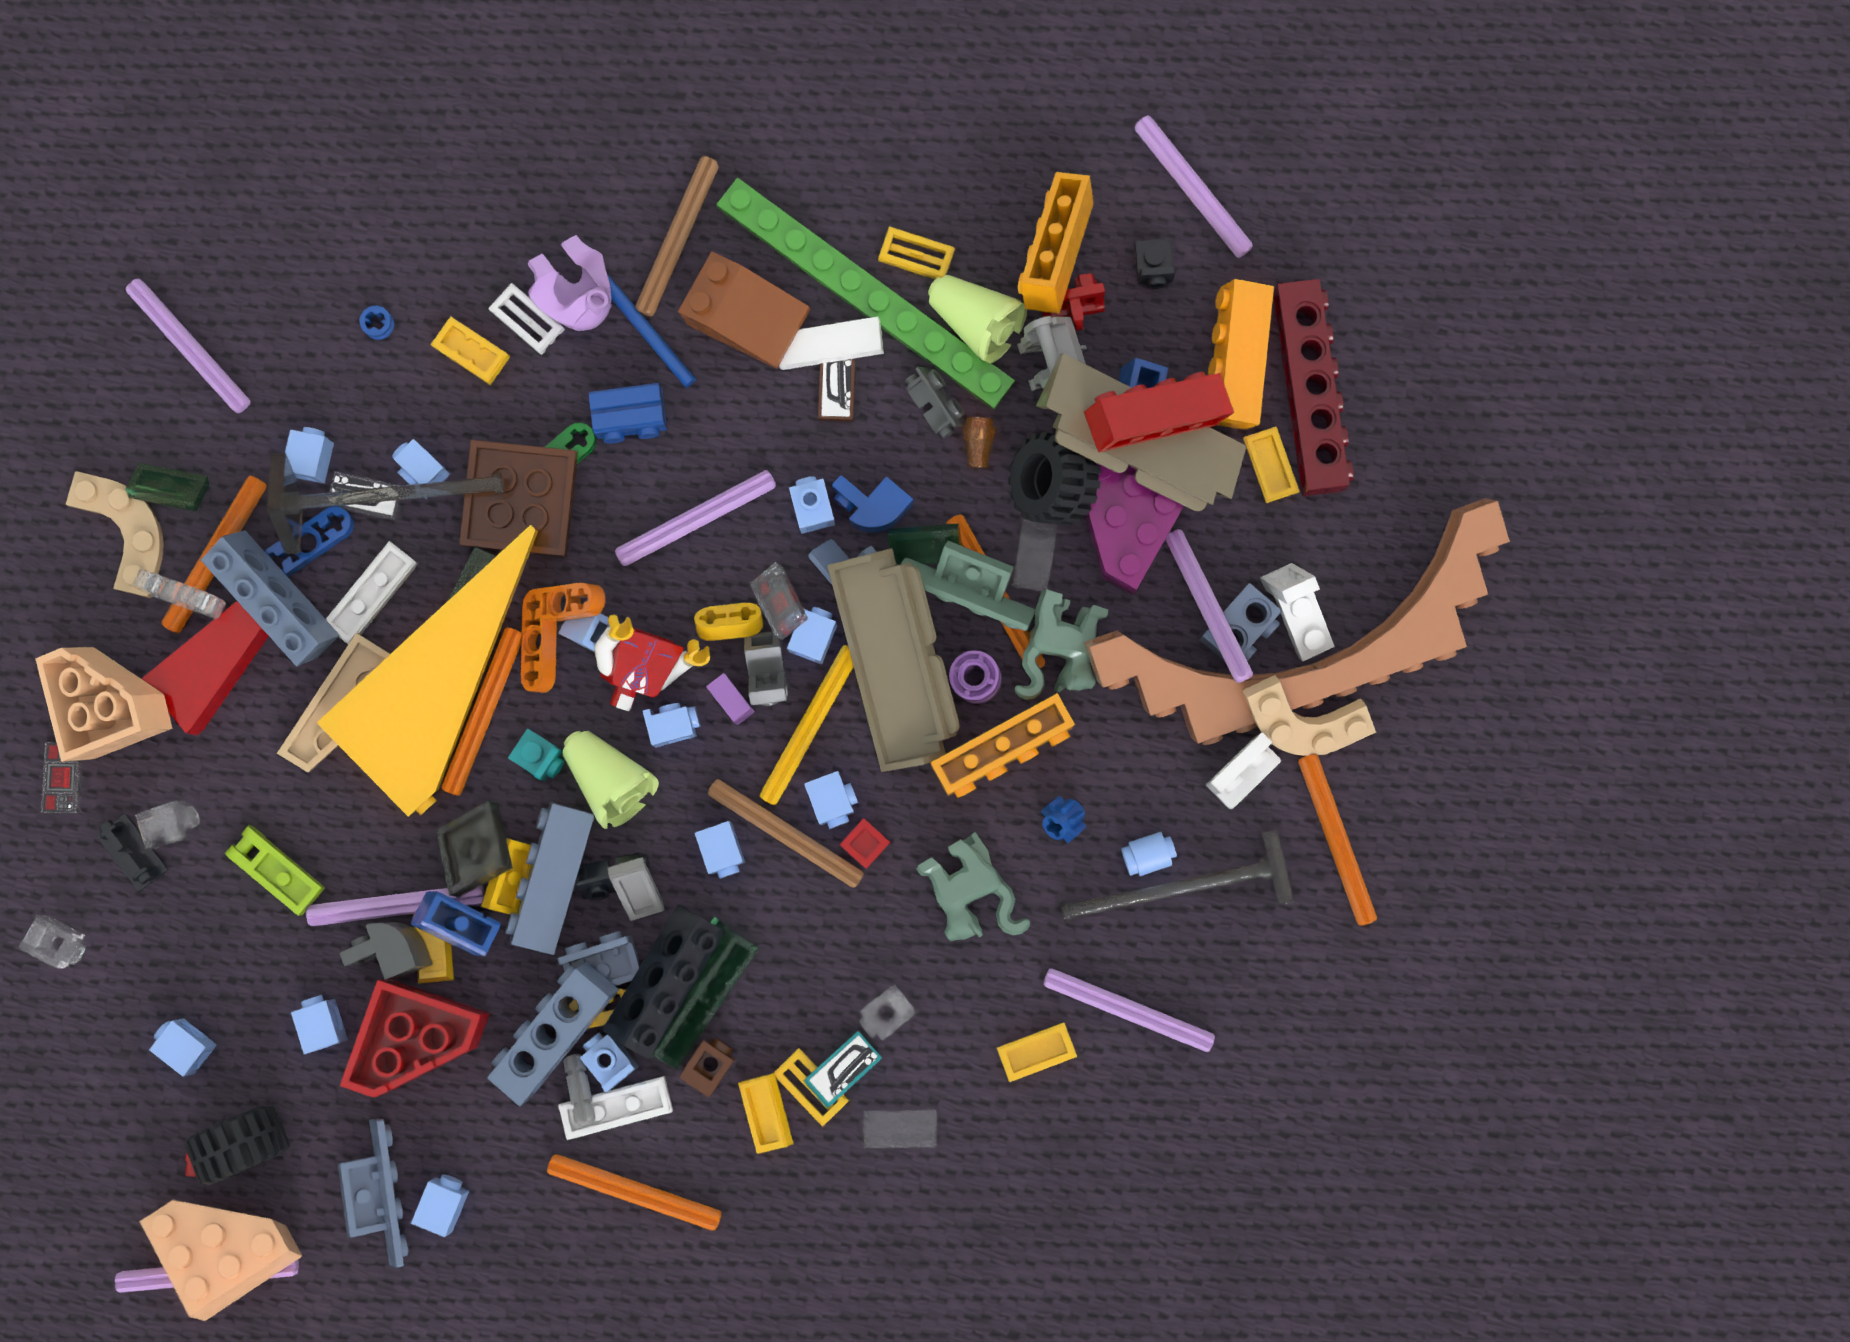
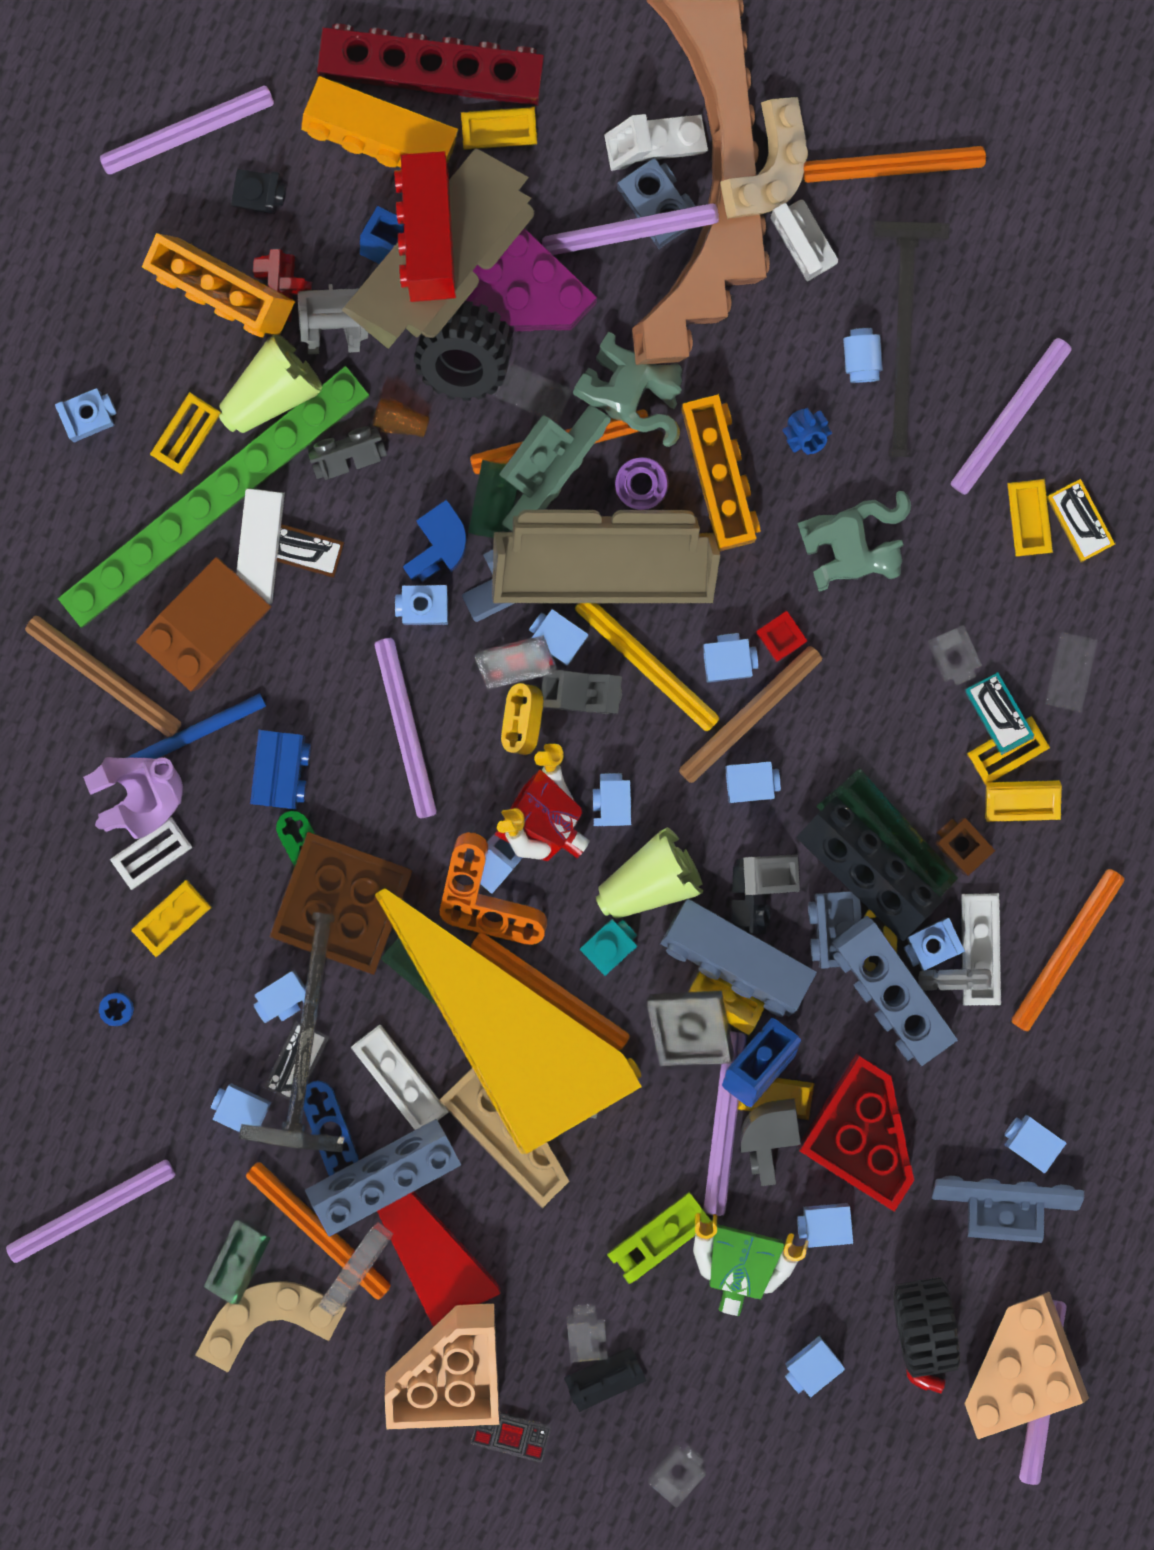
camera: 85 degrees left, 5 degrees up
(266, 953) = (742, 1262): none -> torso
(730, 699) = (603, 735): medium lavender piece -> none
(910, 174) = (80, 428): none -> light blue brick
(1046, 1102) = (1080, 520): none -> tile

